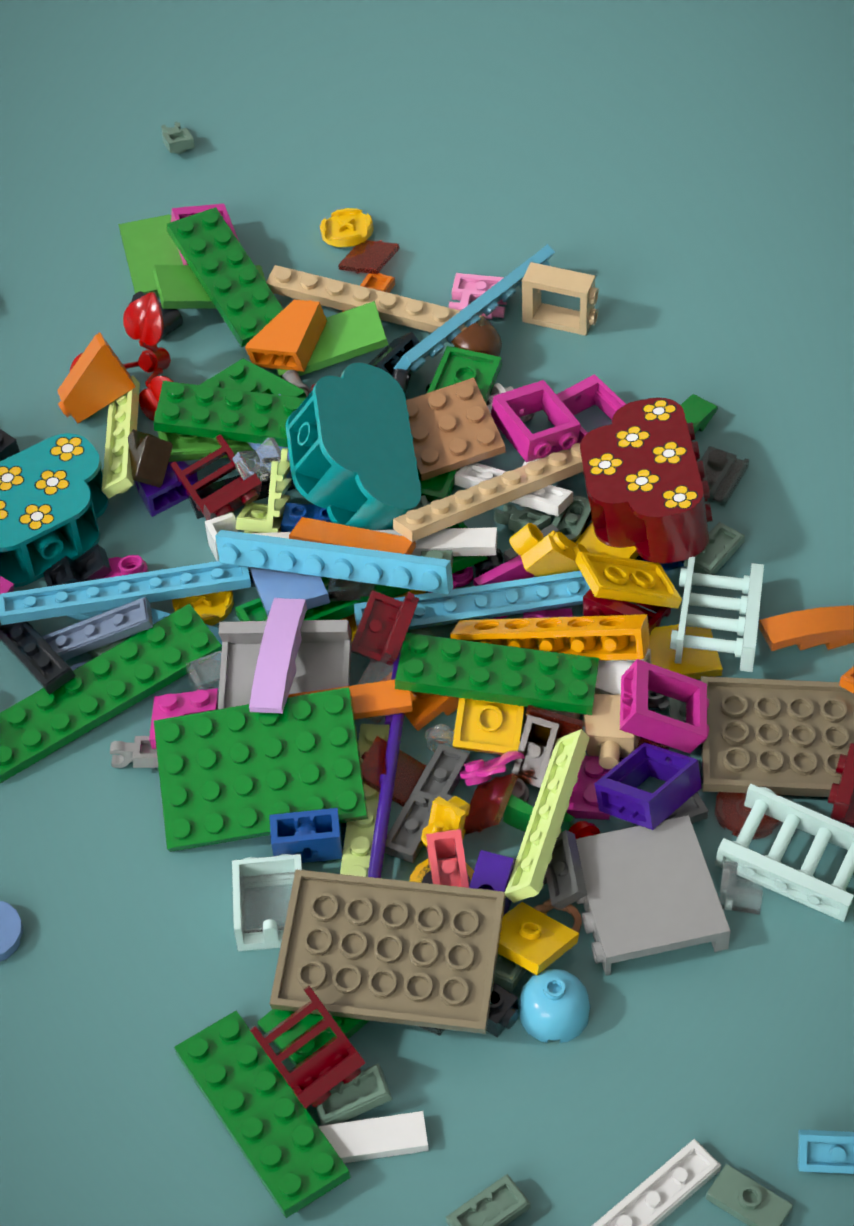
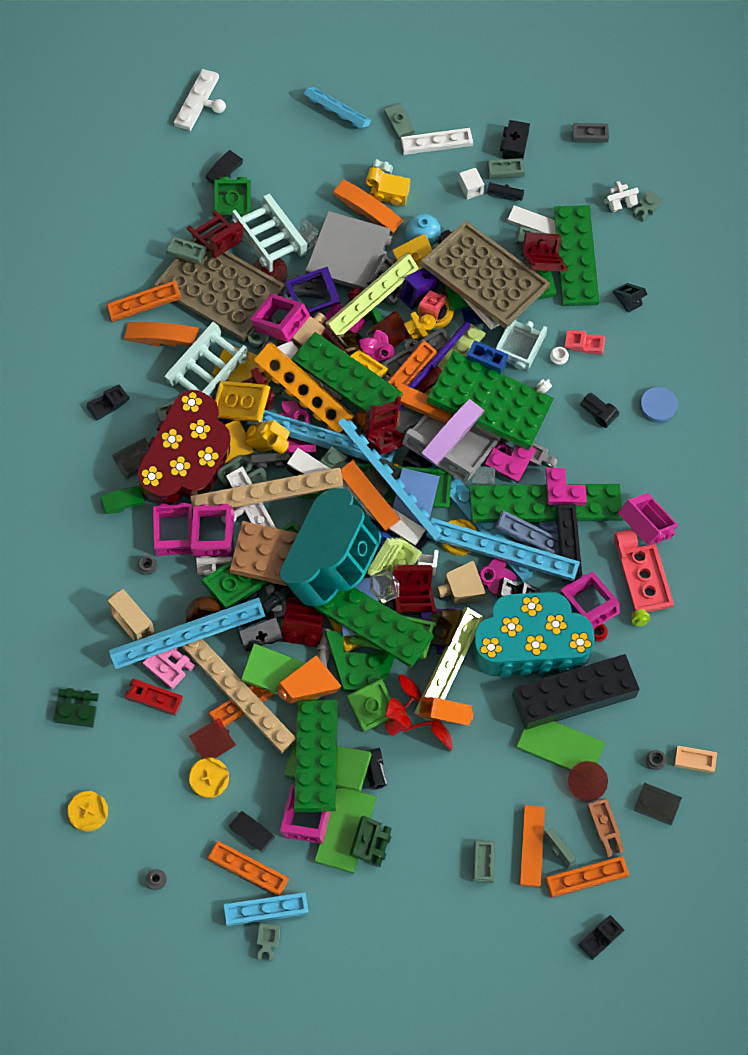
camera: 155 degrees left, 15 degrees up
(74, 864) = (603, 413): none -> black piece
(76, 698) = (561, 494): none -> dark pink plate
(120, 246) = (366, 838): none -> dark green plate
(123, 1082) = (630, 296): none -> black slope
(158, 537) = (463, 585): none -> tan torso
(160, 971) = (584, 343): none -> coral slope
(193, 854) = (543, 386): none -> white plate
(195, 921) = (559, 355): none -> white plate
(196, 158) = (266, 909): none -> medium azure plate
(199, 363) = (370, 704): none -> bright green tile
(242, 182) = (248, 868): none -> orange tile
(270, 206) = (252, 831): none -> black slope
(336, 132) = (156, 885): none -> dark grey plate
(416, 754) = (413, 364): none -> orange tile
(459, 150) = (87, 811): none -> yellow tile
(459, 1164) = (505, 191): none -> black pin
(471, 261) = (154, 697): none -> red plate
(529, 1134) = (471, 183): none -> white panel
(552, 217) = (73, 713): none -> dark green plate
(594, 367) = (147, 560): none -> dark grey plate
(668, 1045) = (388, 187): none -> yellow hinge
(682, 990) = (367, 205): none -> orange slope
(706, 1073) = (384, 166): none -> light aqua plate
(815, 516) = (109, 402): none -> black slope

